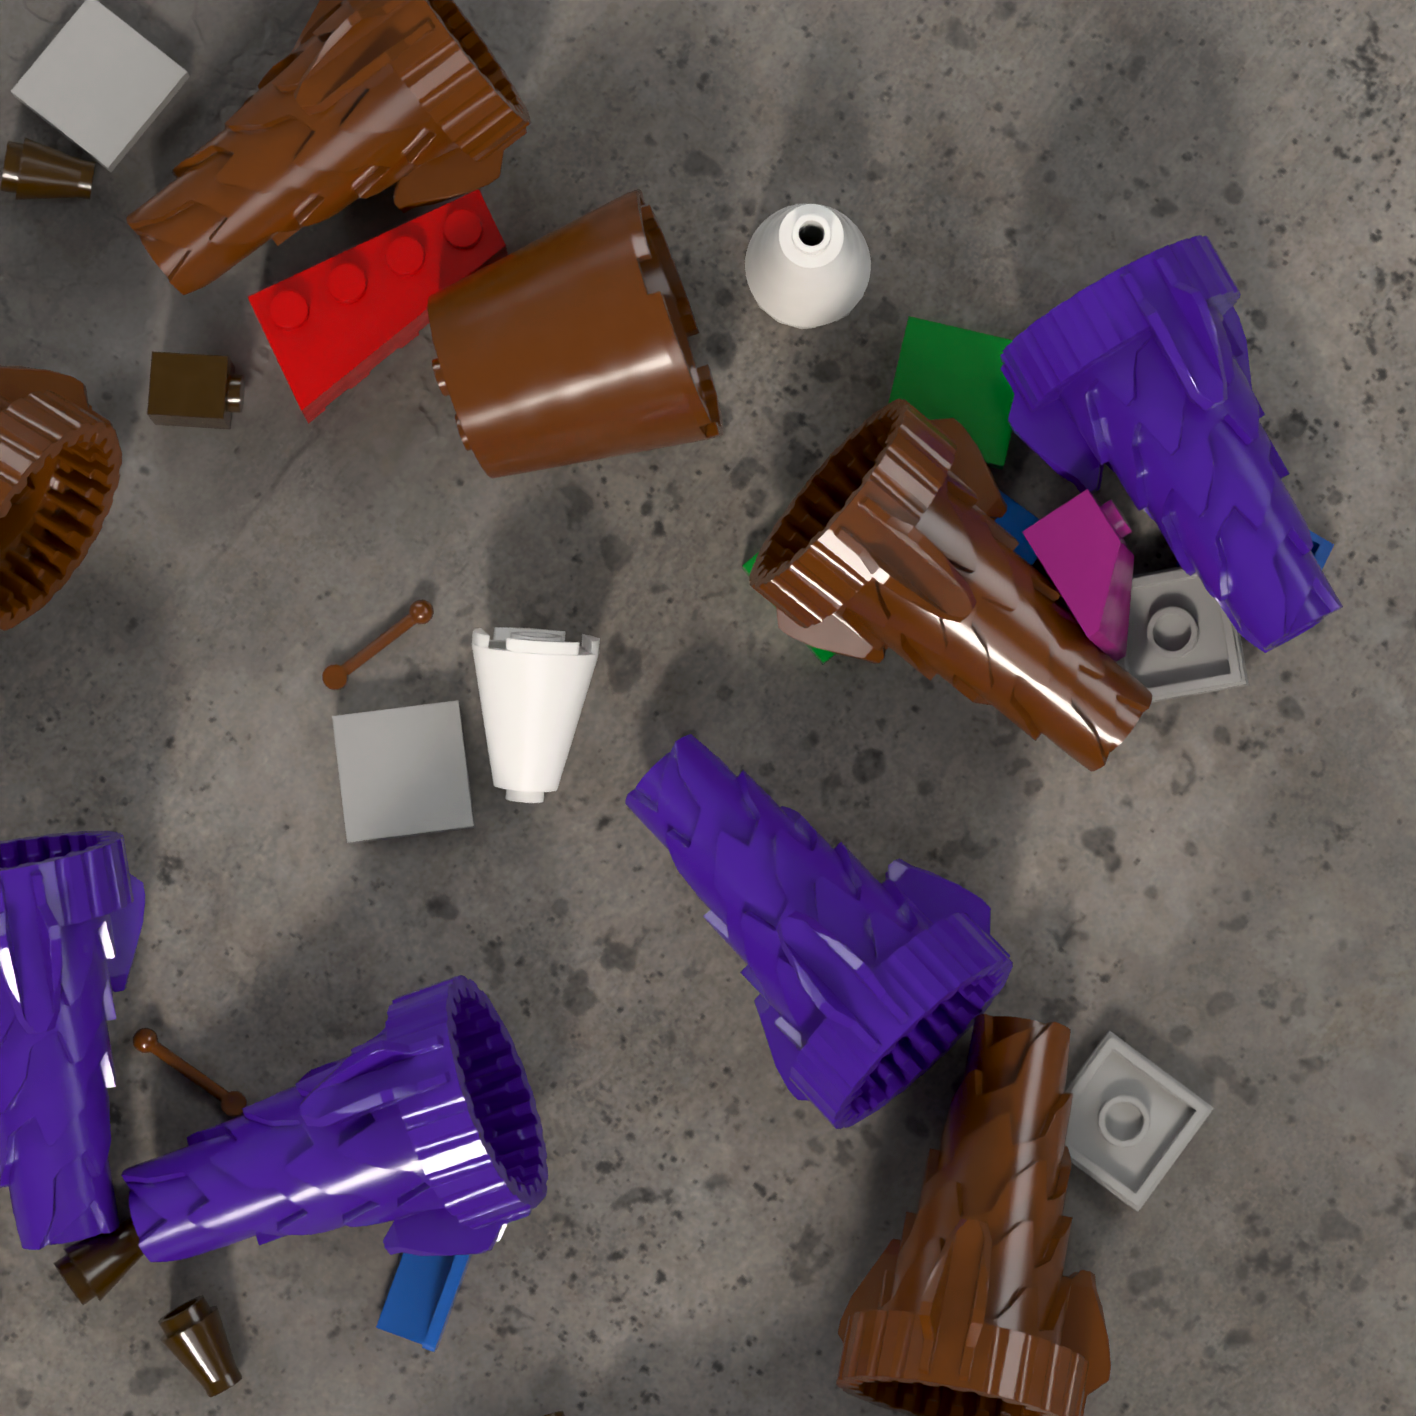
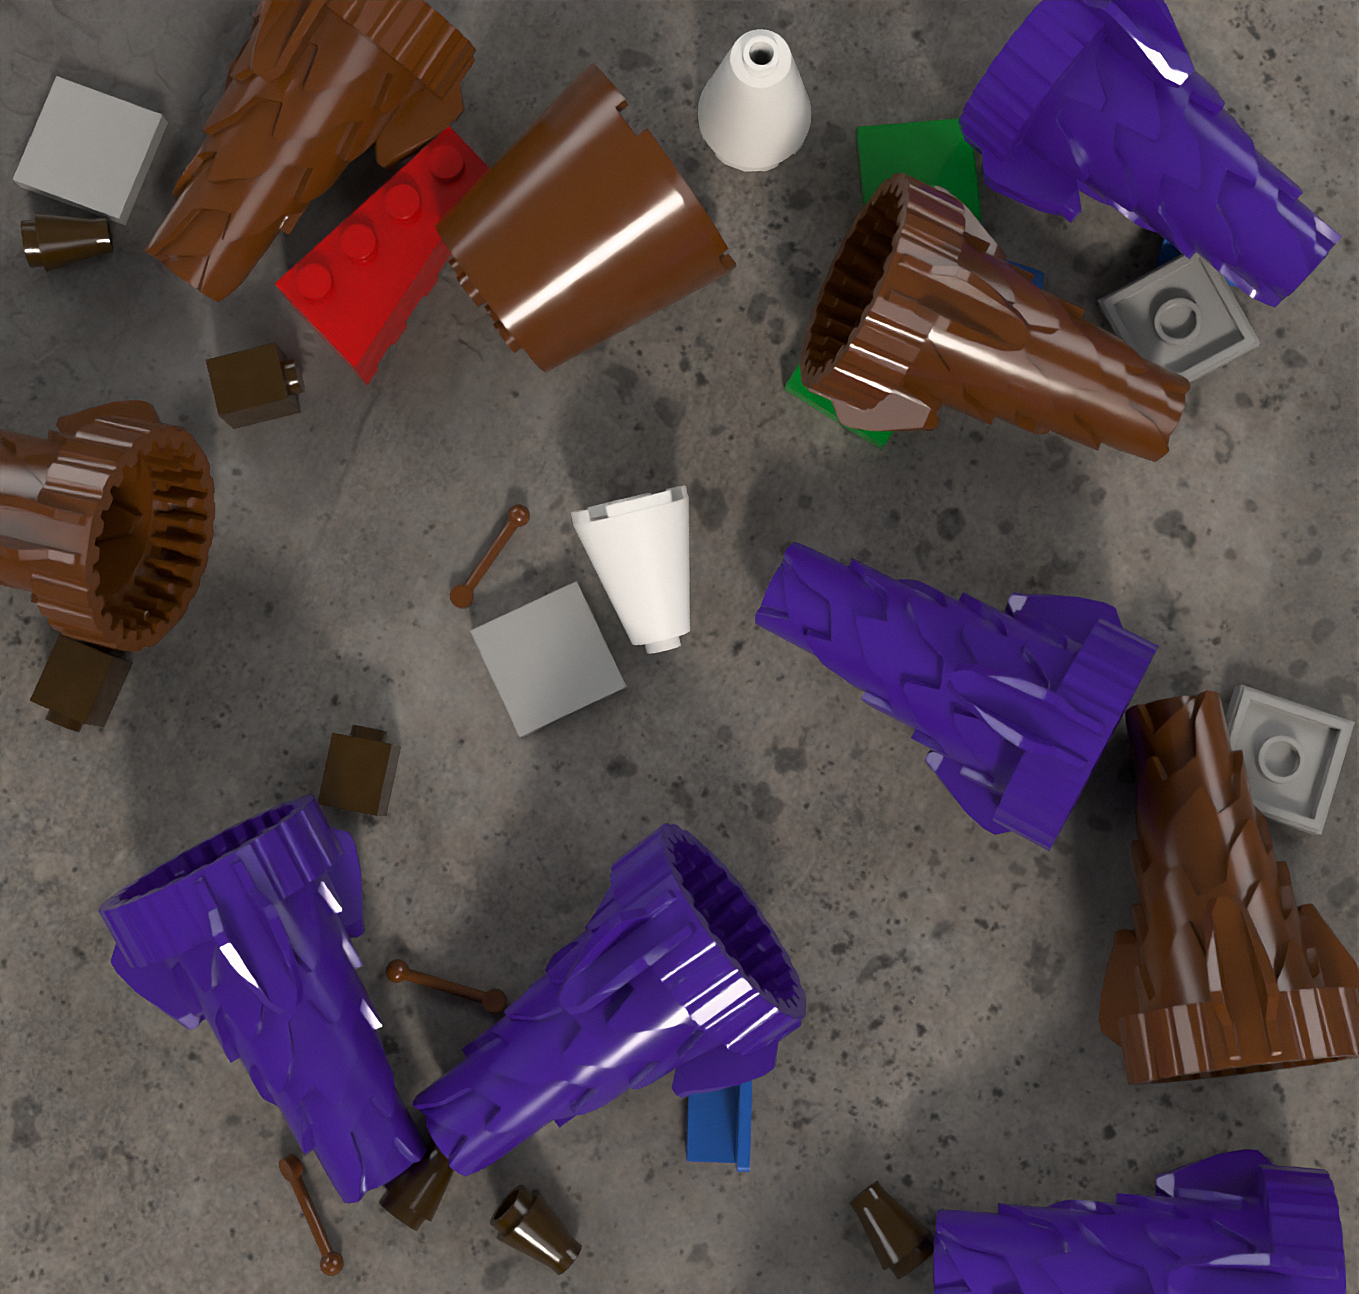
camera: 20 degrees left, 0 degrees up
(173, 824) = (359, 771): none -> dark brown brick
(1090, 566) = (1095, 270): magenta slope -> none

